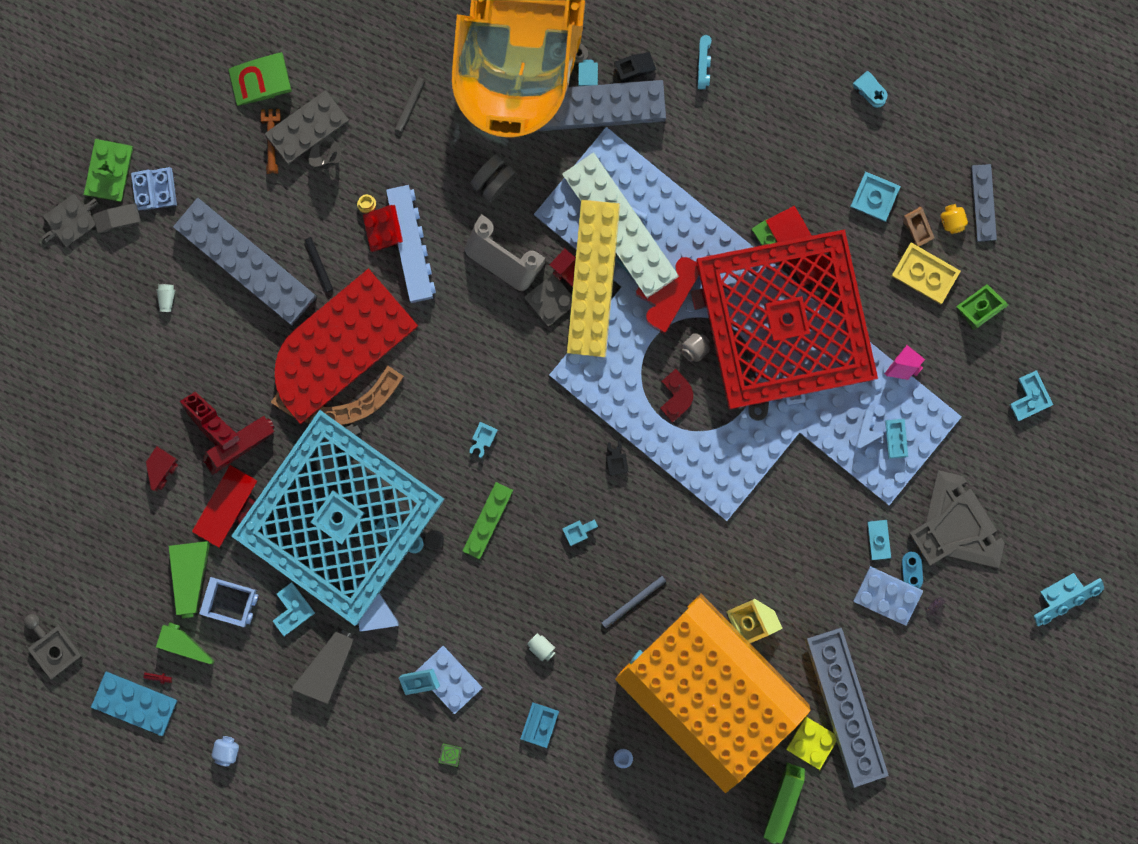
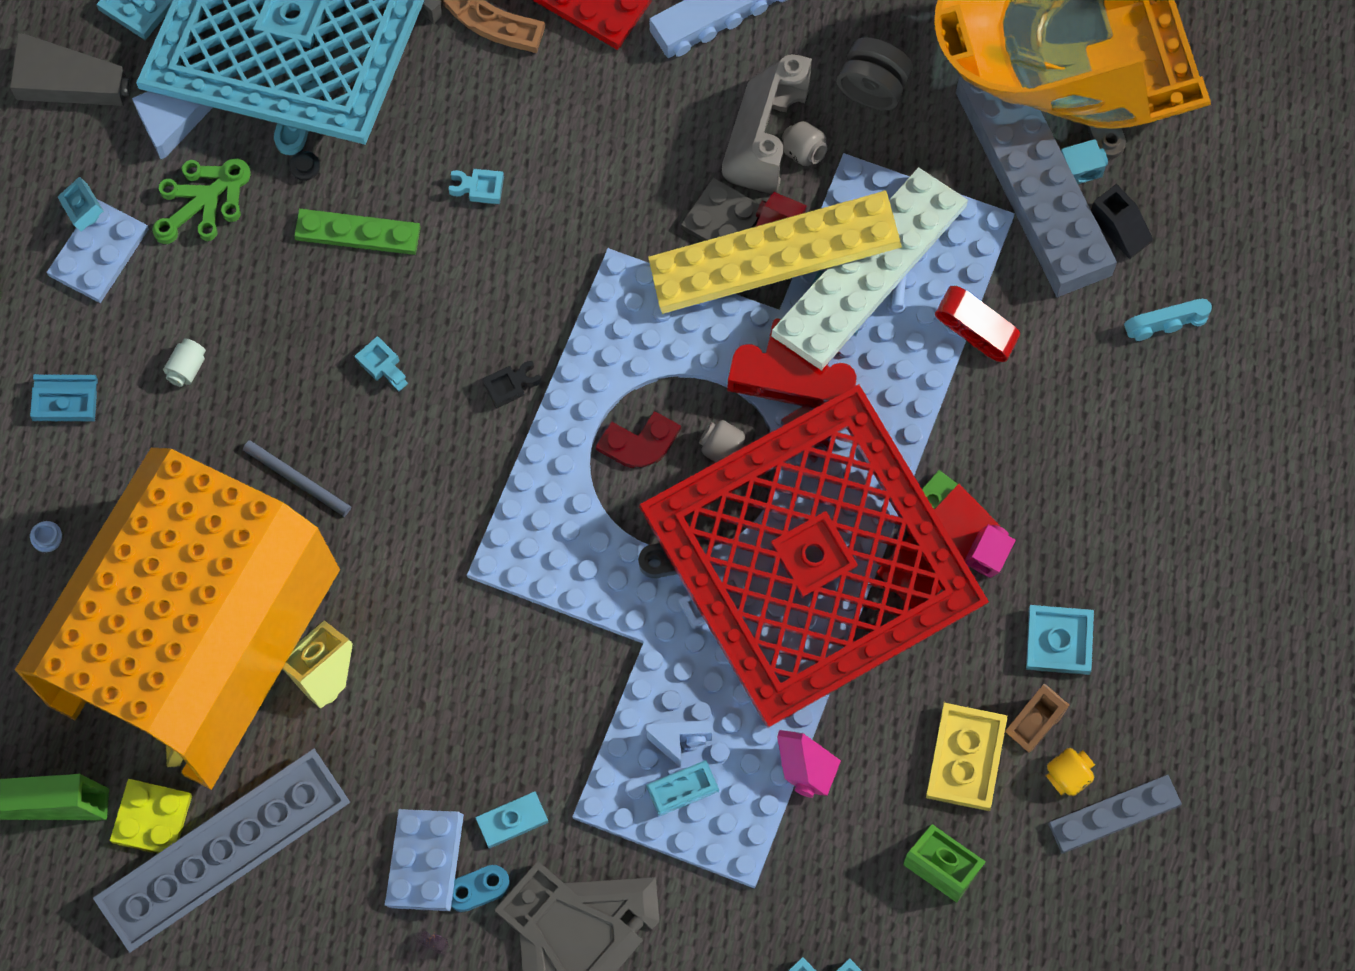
camera: 70 degrees right, 15 degrees down
(435, 605) = (204, 197): none -> bright green plant
(520, 235) = (804, 143): none -> light grey head
(672, 174) = (977, 323): none -> beam
(811, 217) = (990, 550): none -> dark pink brick
(869, 87) = (1227, 577): medium azure piece -> none

